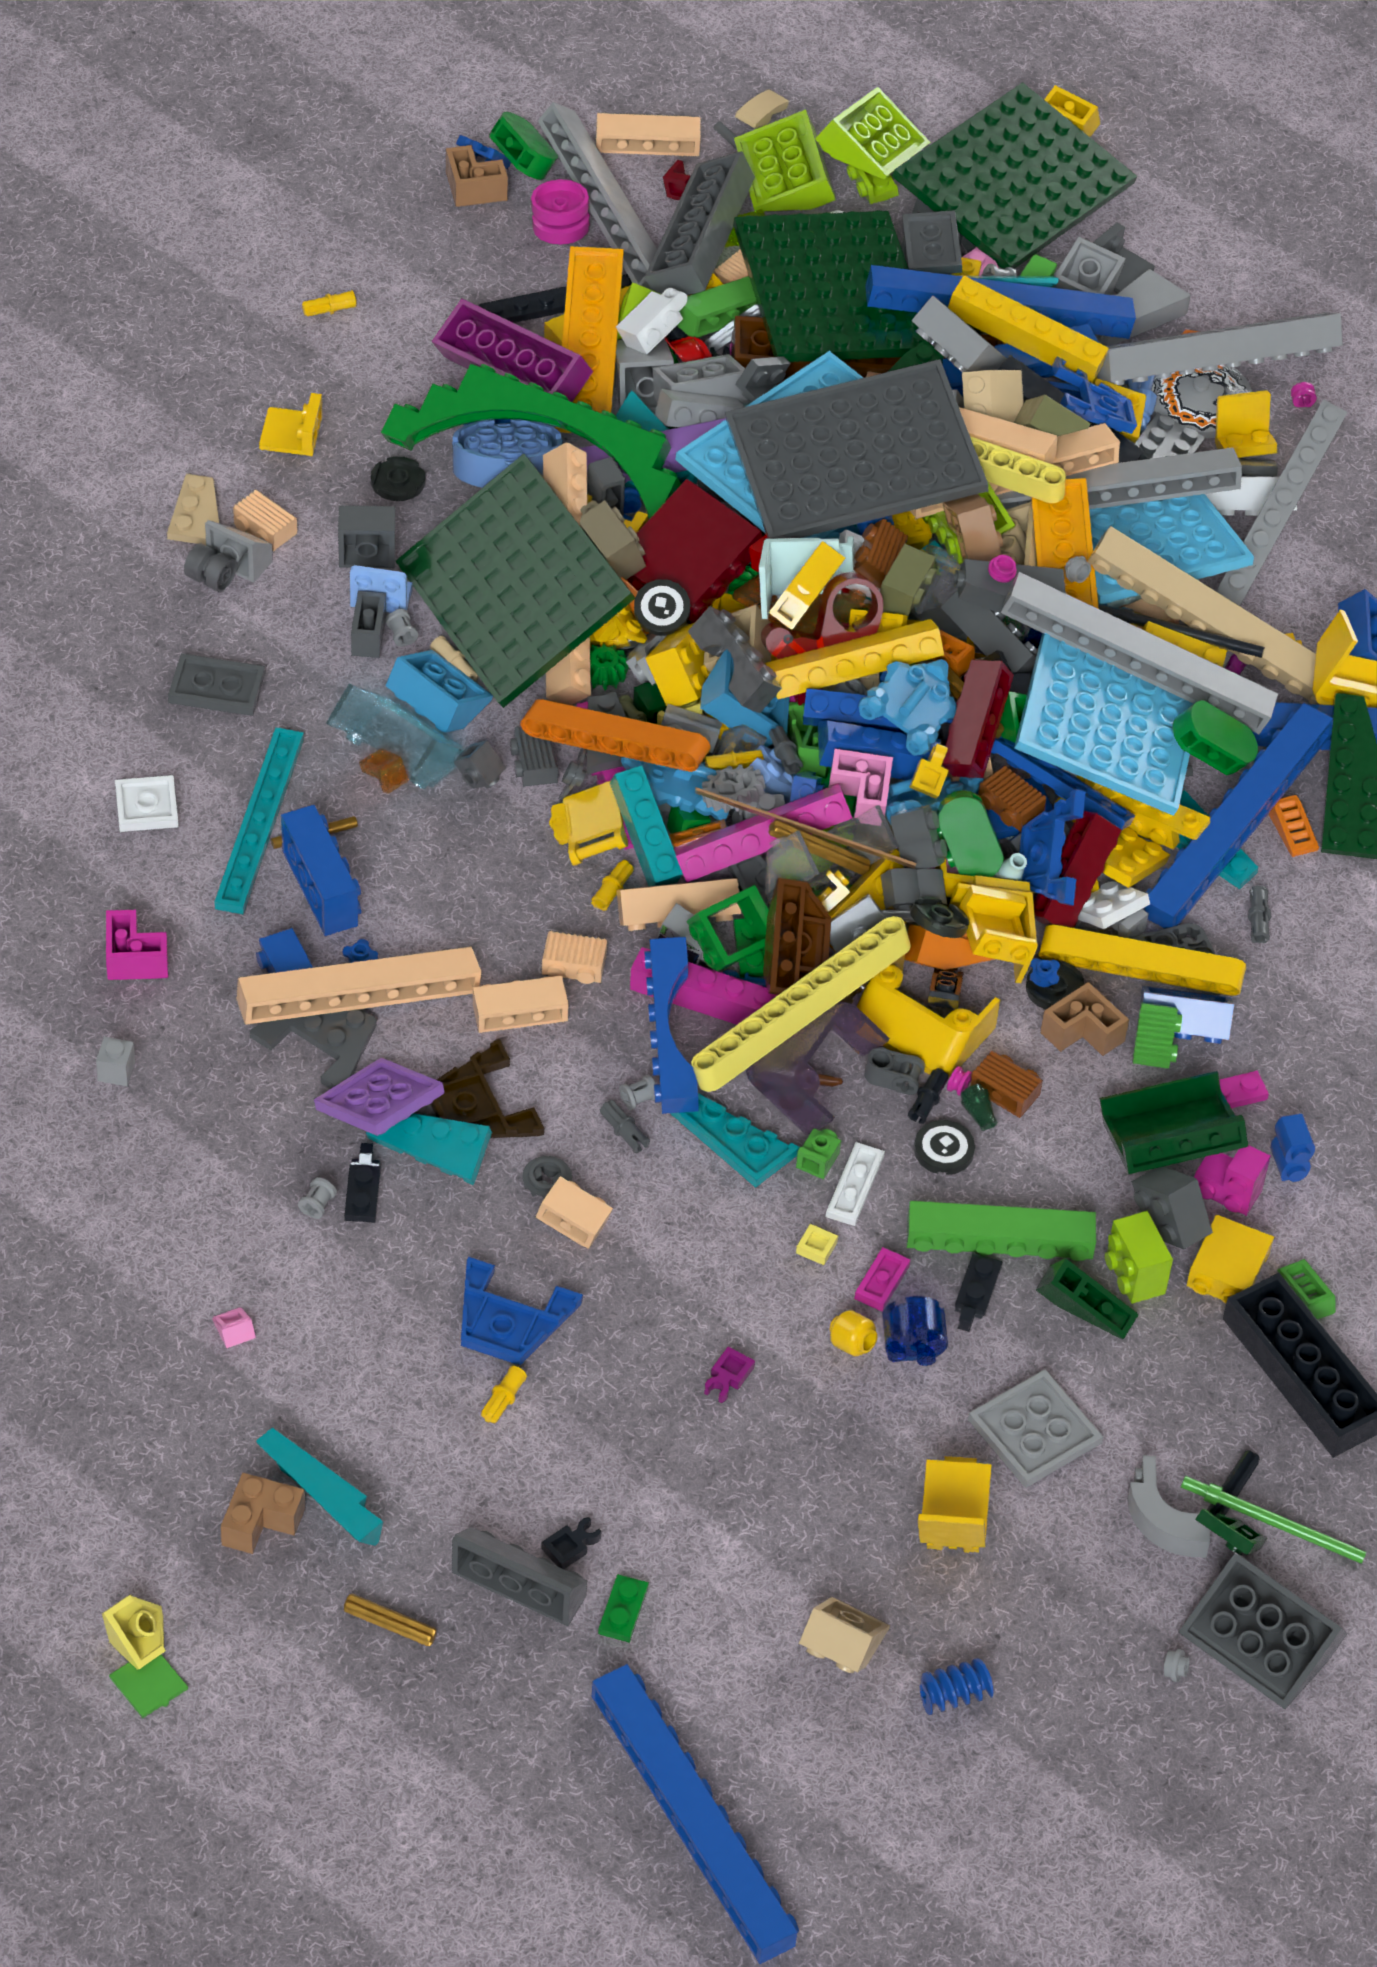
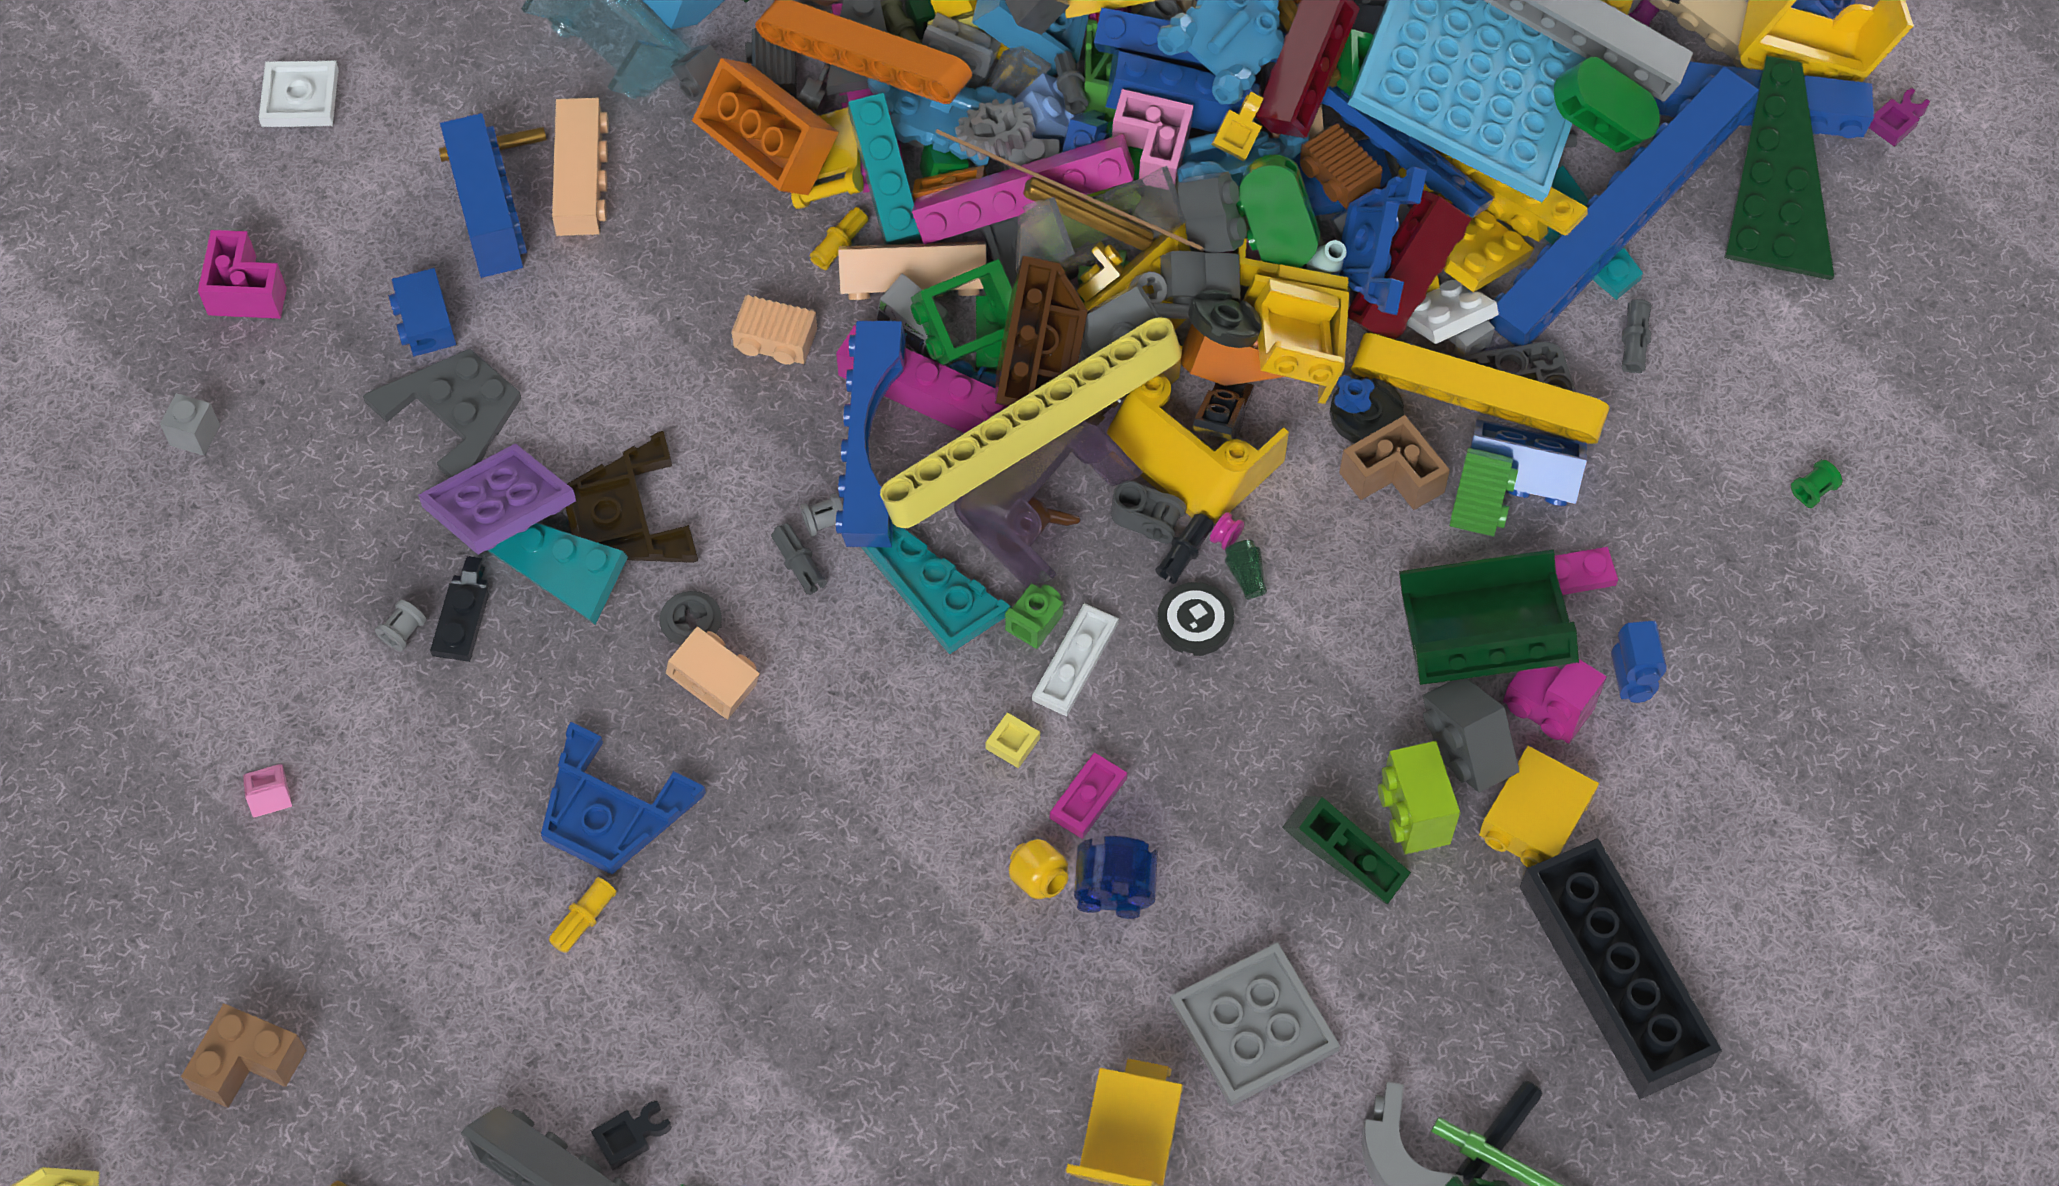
camera: 10 degrees right, 10 degrees up
(259, 821) = (423, 130): teal plate -> none
(330, 1490) = (326, 1033): teal wedge -> none
(357, 985) = (499, 348): light nougat brick -> none
(361, 946) = (518, 313): blue plate -> none
(386, 768) = (590, 69): clear orange bracket -> none
(390, 844) = (578, 167): none -> light nougat brick
(520, 1004) = (696, 386): light nougat brick -> none
(543, 800) = (765, 126): none -> orange brick
(728, 1371) = (873, 907): magenta plate -> none
(732, 759) = (1004, 90): yellow axle -> none
(881, 895) = (1156, 281): none -> light grey bush
(977, 1289) = (1207, 819): black hinge -> none
(1001, 1230) = (1249, 741): bright green brick -> none
(1008, 1083) = (1286, 539): dark orange brick -> none
(1289, 809) = (1692, 200): orange slope -> none
(1323, 1302) = (1641, 879): bright green slope -> none

